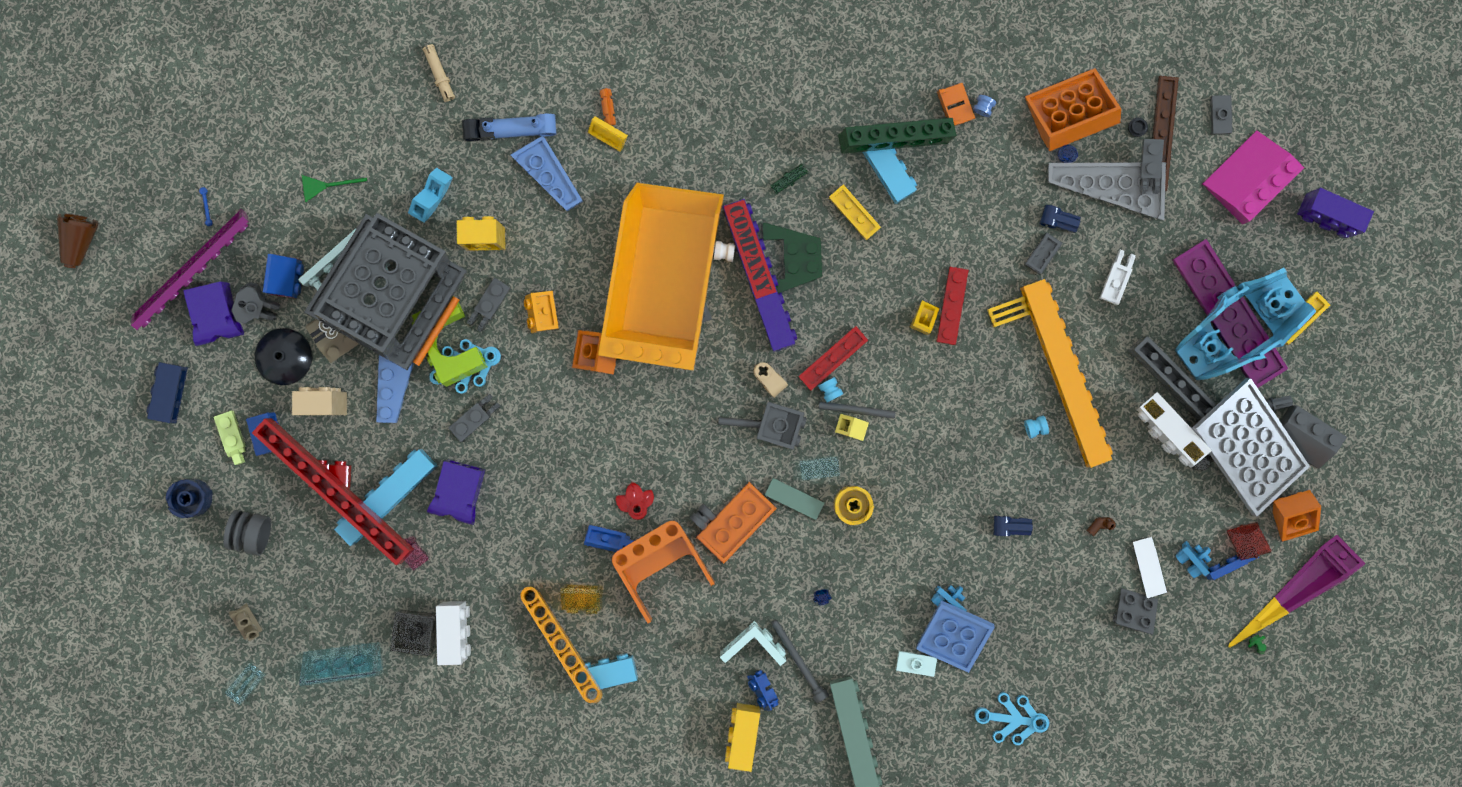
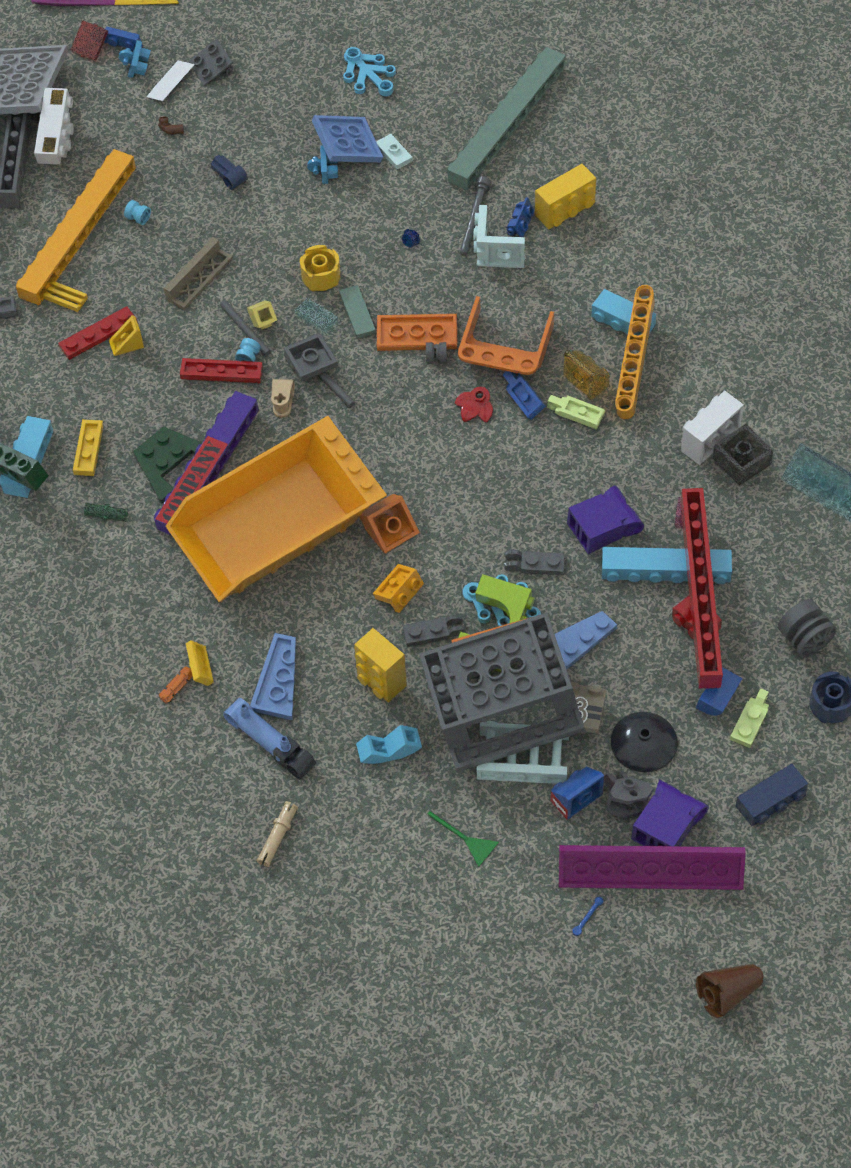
camera: 135 degrees left, 30 degrees down
(319, 401) = (645, 660): tan brick -> none
(561, 563) = (576, 410): none -> yellowish green hinge
(940, 405) = (194, 268): none -> dark tan fence
(1296, 515) = (39, 30): orange slope -> none

